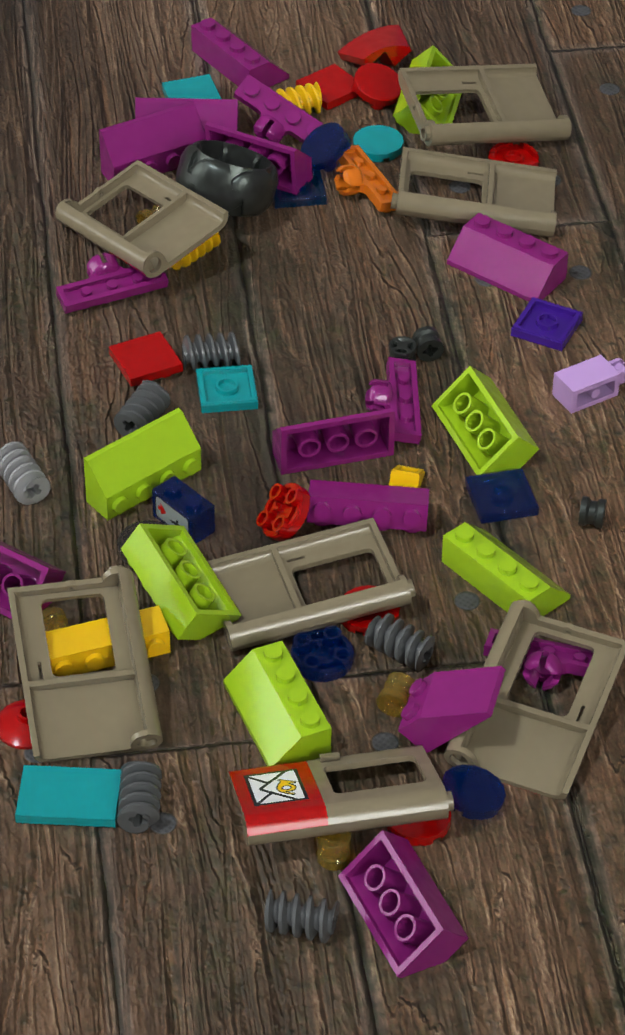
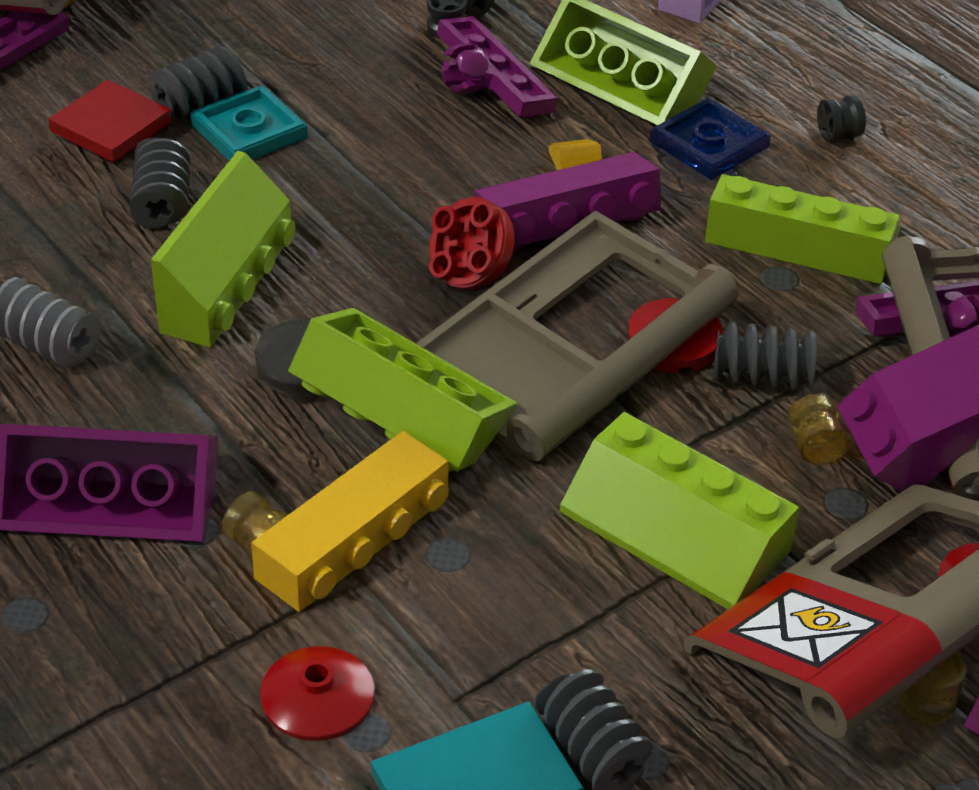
camera: 30 degrees left, 0 degrees up
(92, 710) = (414, 629): dark tan piece -> none
(182, 506) = (319, 284): clear blue brick -> none
(322, 654) = (672, 408): clear blue tile -> none
(334, 441) = (455, 138): magenta slope -> none

